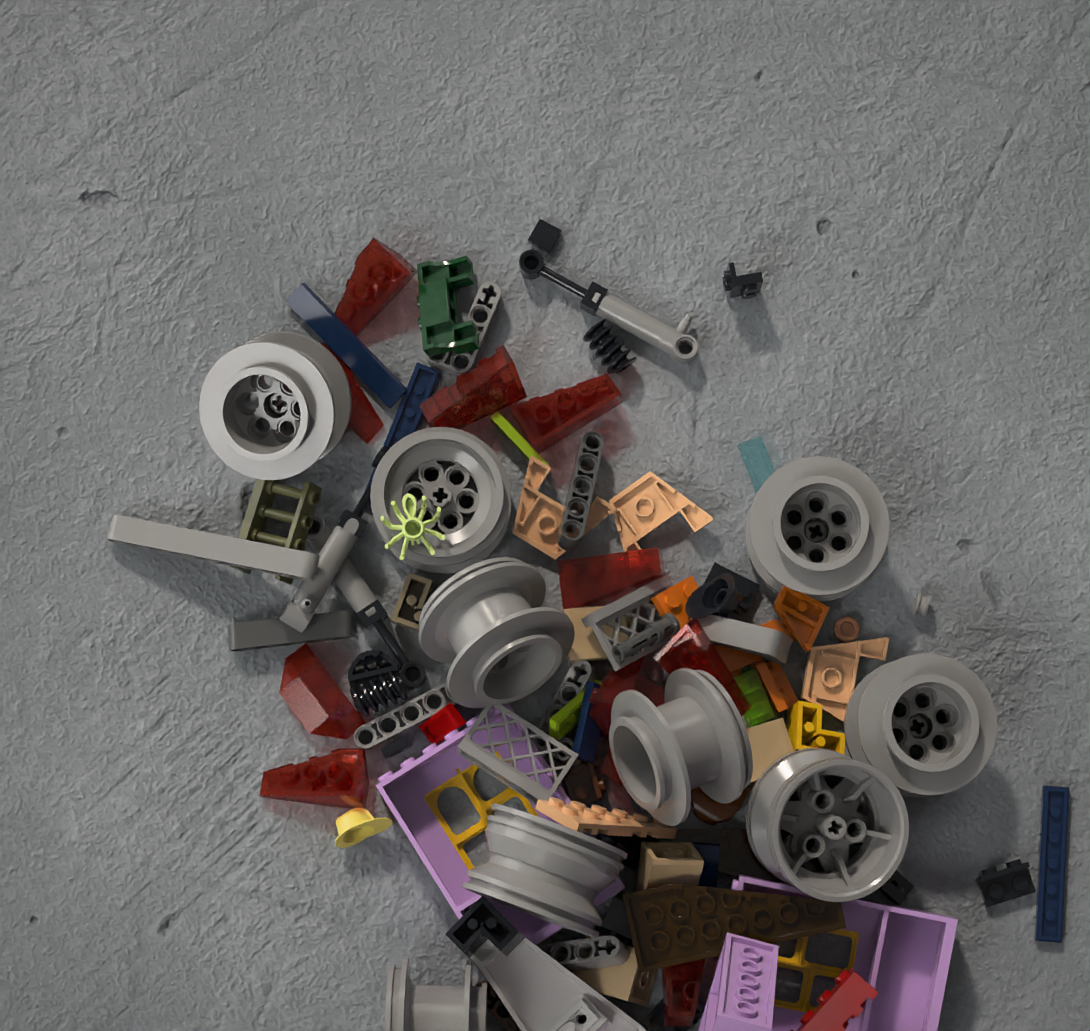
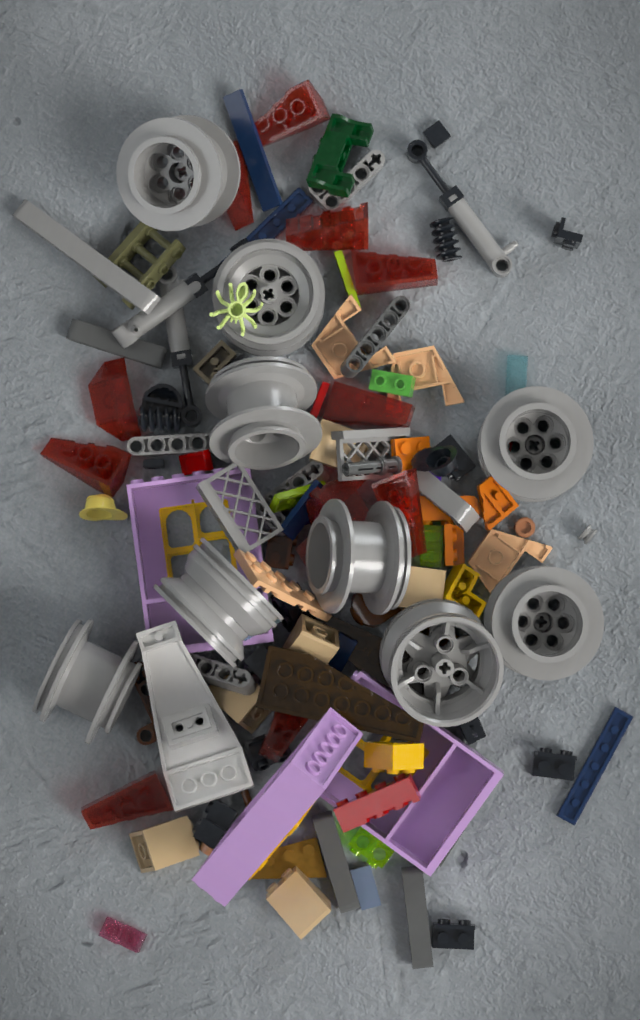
camera: 20 degrees right, 5 degrees up
(481, 924) = (159, 621): black brick -> none
(550, 600) = (319, 399): none -> red tile
(623, 534) = (392, 383): none -> bright green brick
(824, 957) = (393, 756): none -> yellow brick

